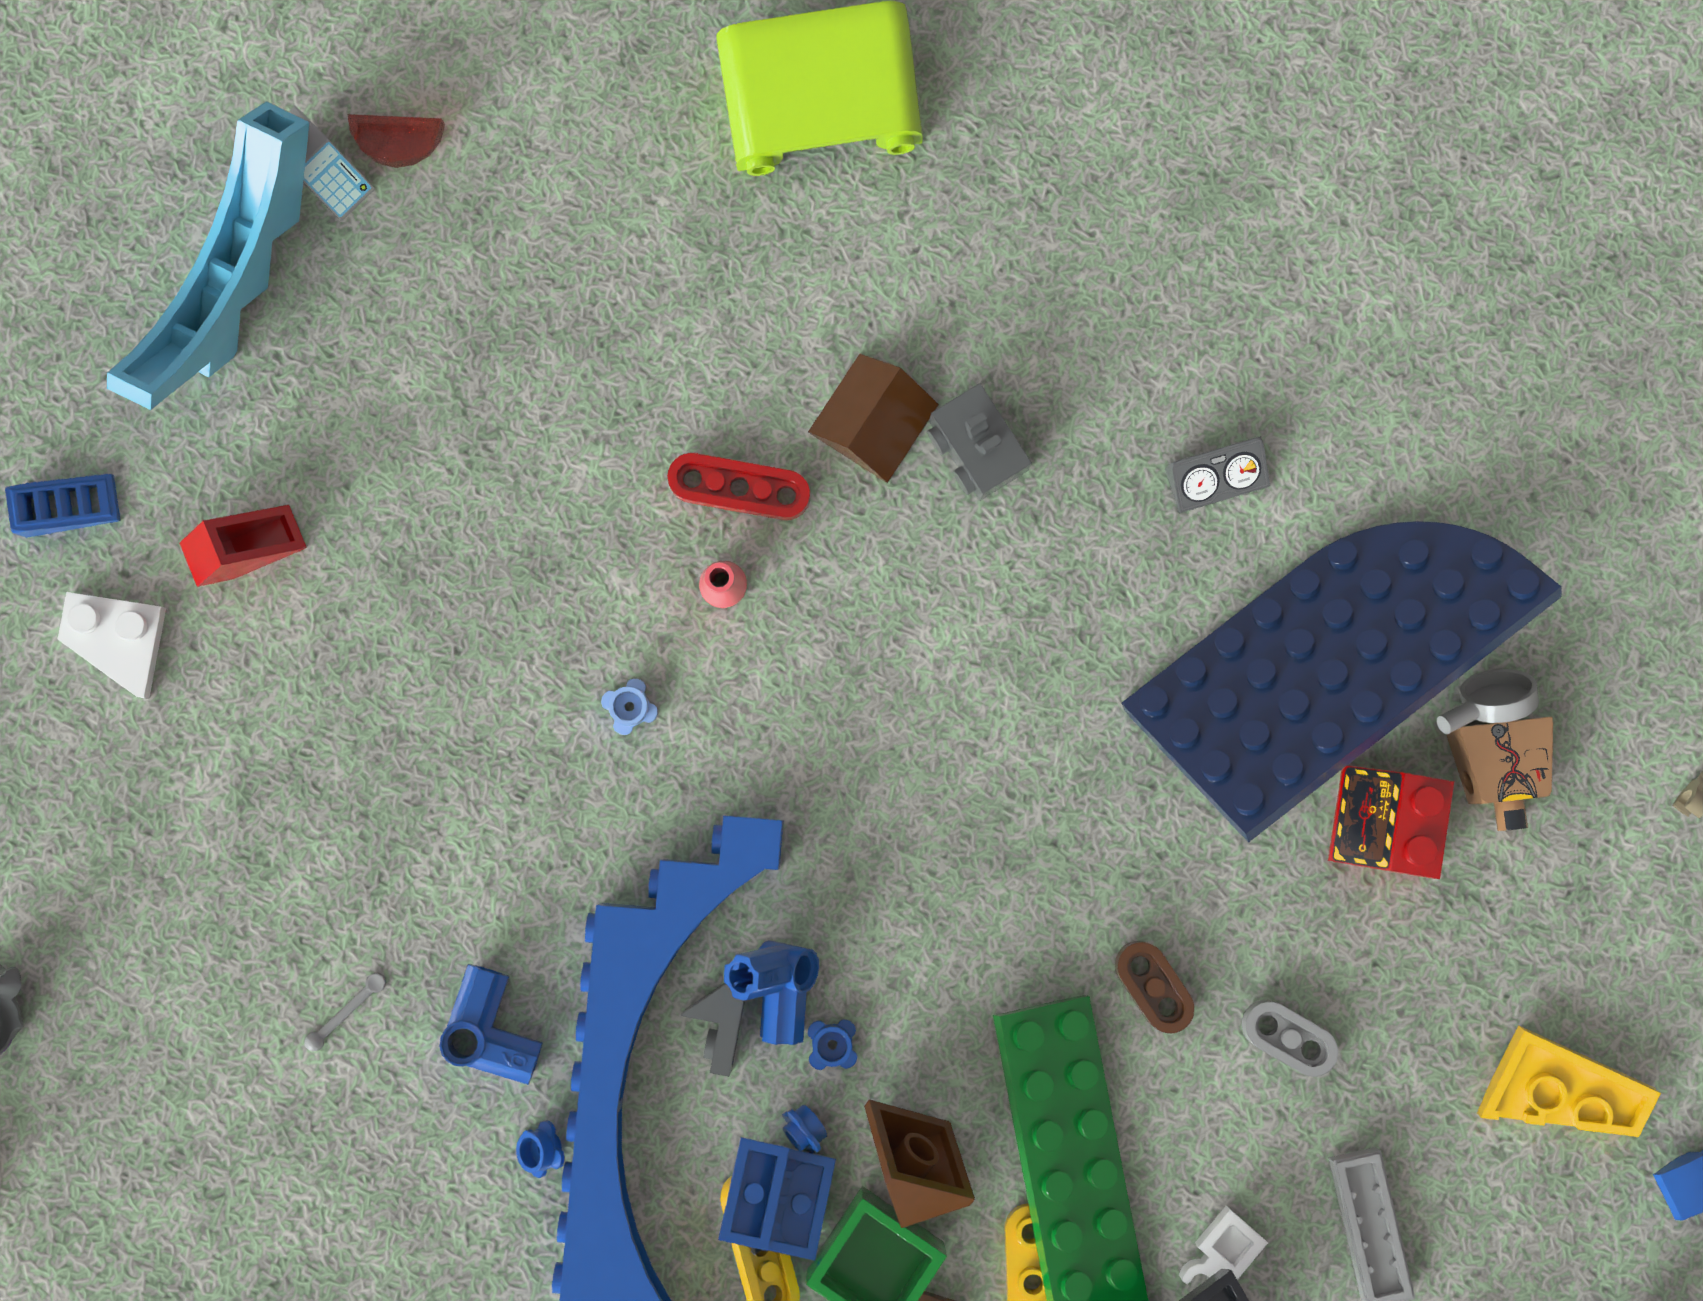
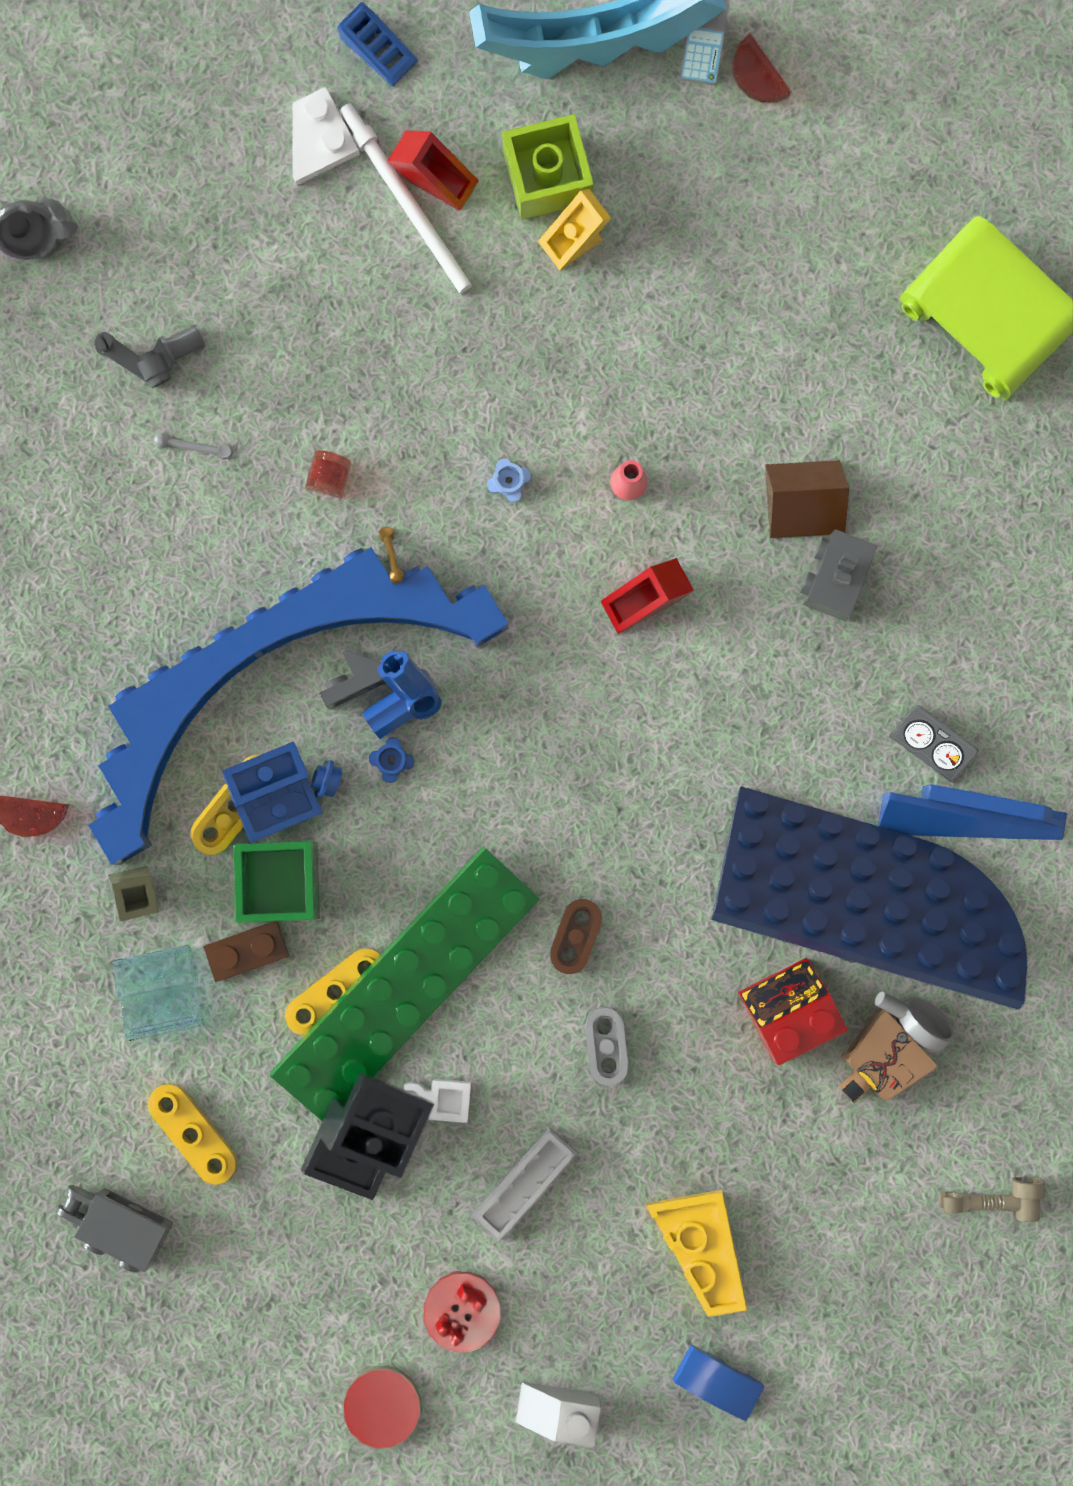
camera: 55 degrees right, 0 degrees up
(158, 589) = (367, 141): none -> white bar
(227, 991) = (154, 364): none -> dark grey pin
(331, 425) = (546, 165): none -> lime brick
(419, 445) = (575, 229): none -> yellow slope
(476, 1010) = (237, 553): blue piece -> none
(482, 891) = (328, 473): none -> clear red brick
(540, 1150) = (195, 625): blue plate -> none
(592, 876) = (386, 535): none -> pearl gold hinge
(720, 474) = (697, 429): red plate -> none
(856, 653) = (647, 594): none -> red slope
(918, 1163) = (357, 861): reddish brown slope -> none
(1315, 495) = (969, 814): none -> blue wedge

